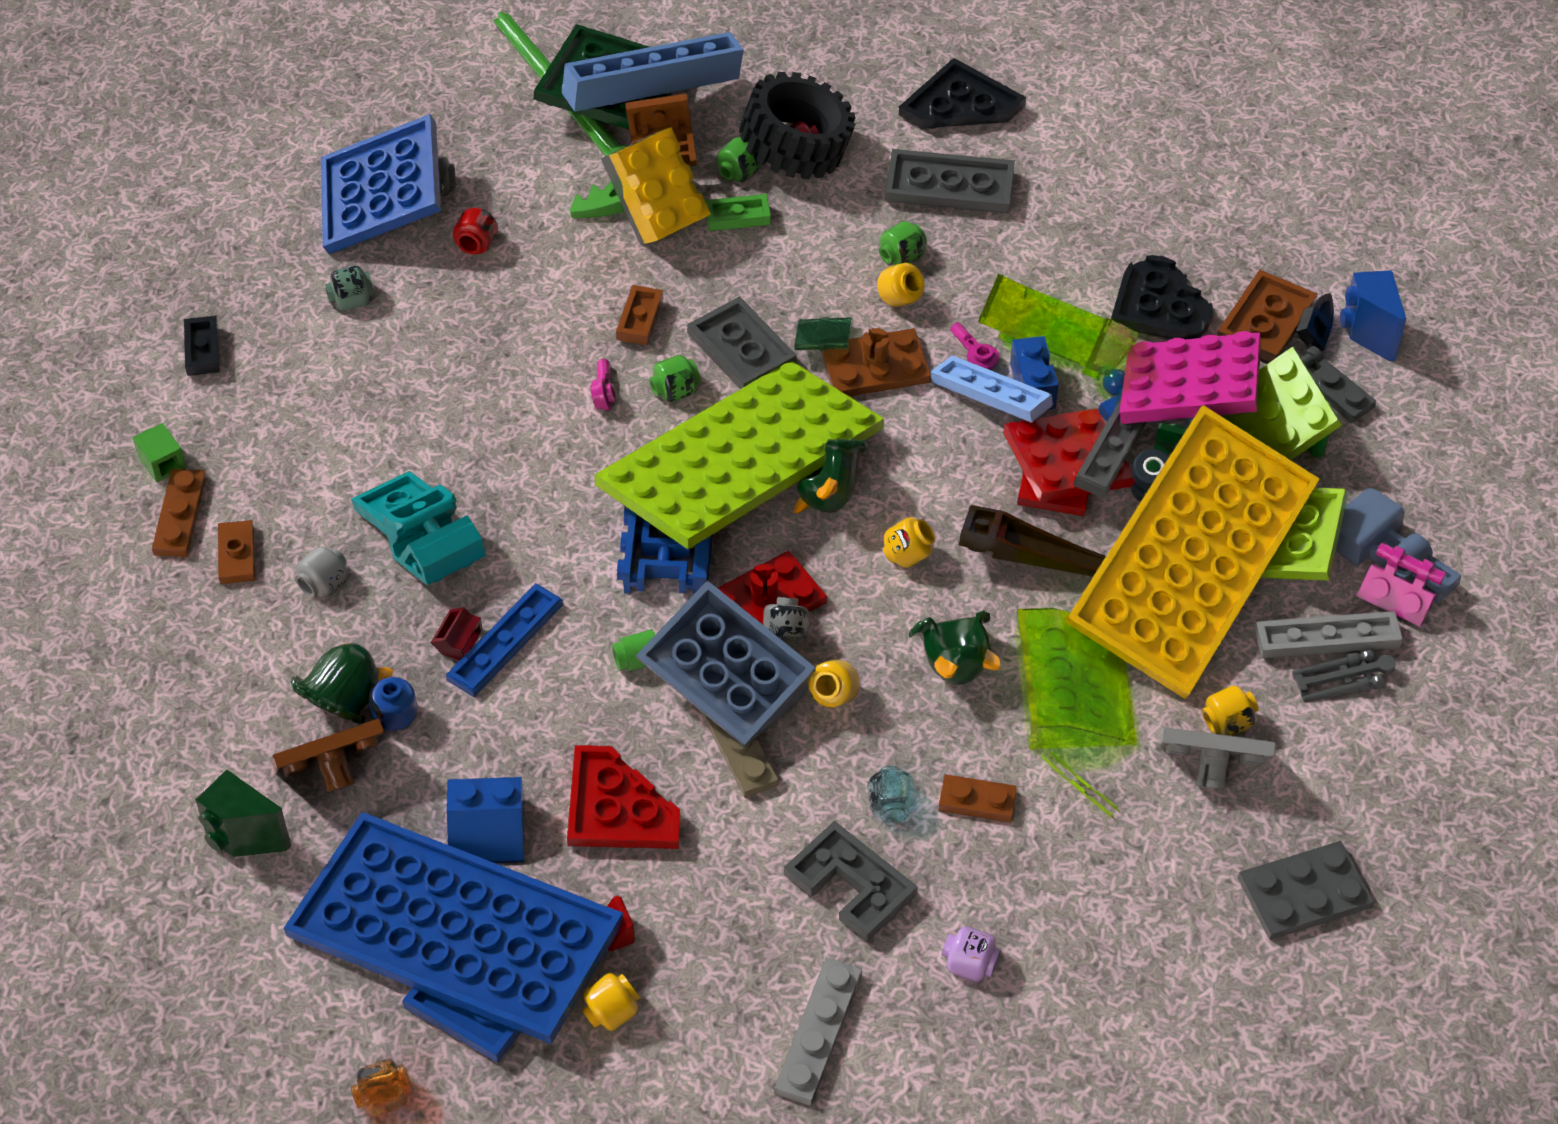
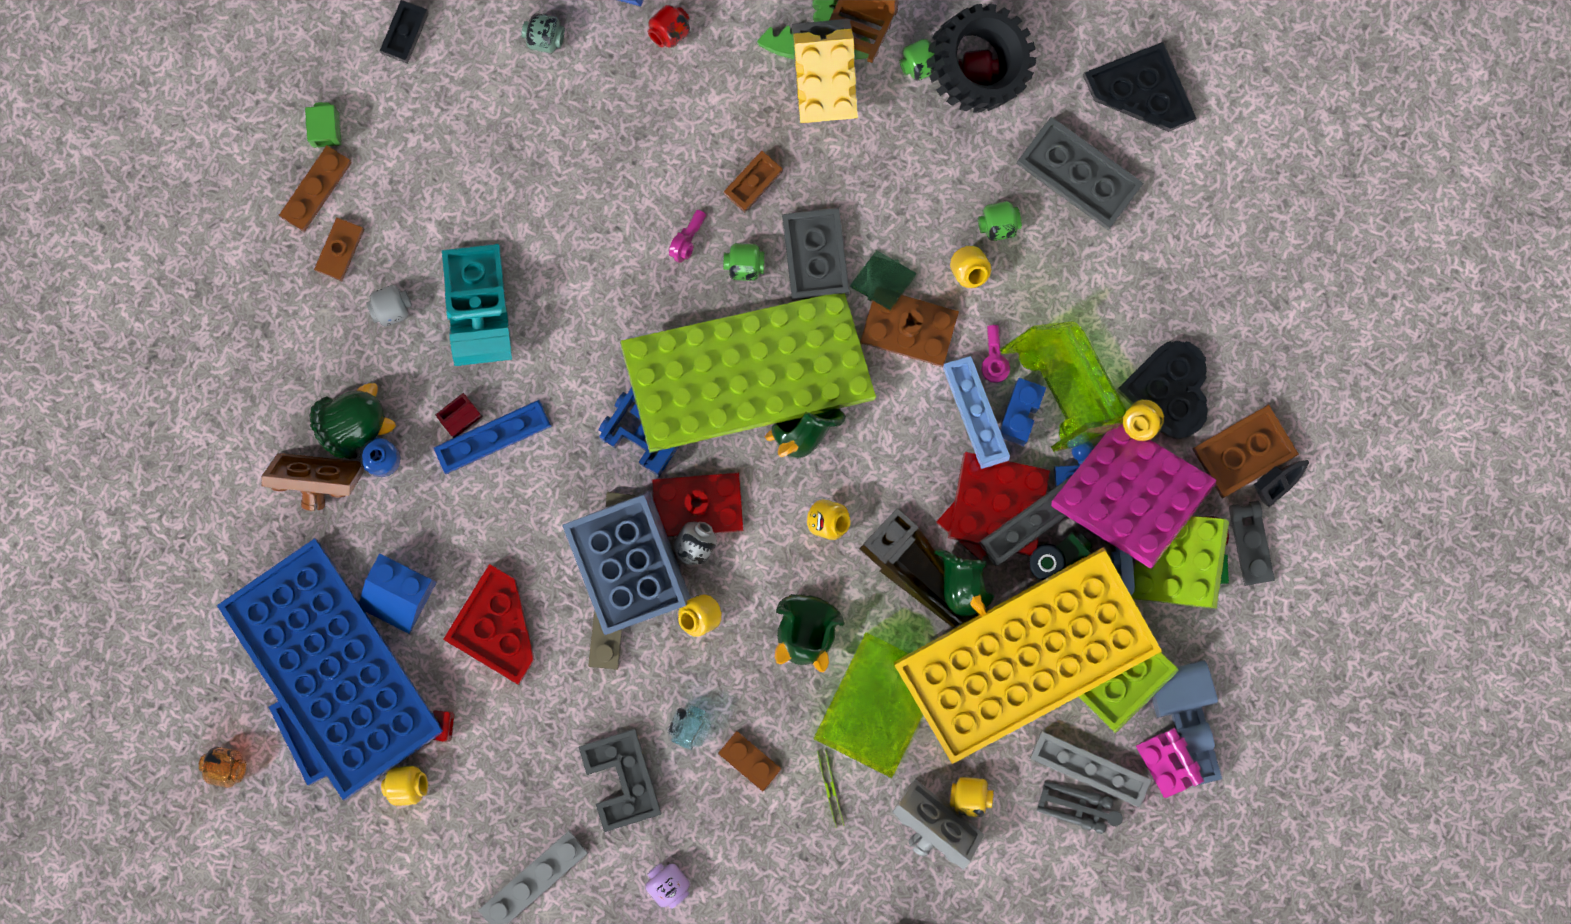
camera: 30 degrees right, 30 degrees up
(241, 818) = (225, 501): dark green slope -> none
(627, 649) = (577, 503): bright green brick -> none
(738, 212) = (888, 115): bright green plate -> none
(1081, 518) = (964, 584): none -> dark green hair
(1155, 321) = (1143, 420): none -> yellow head
(1374, 313) = (1326, 505): blue slope -> none

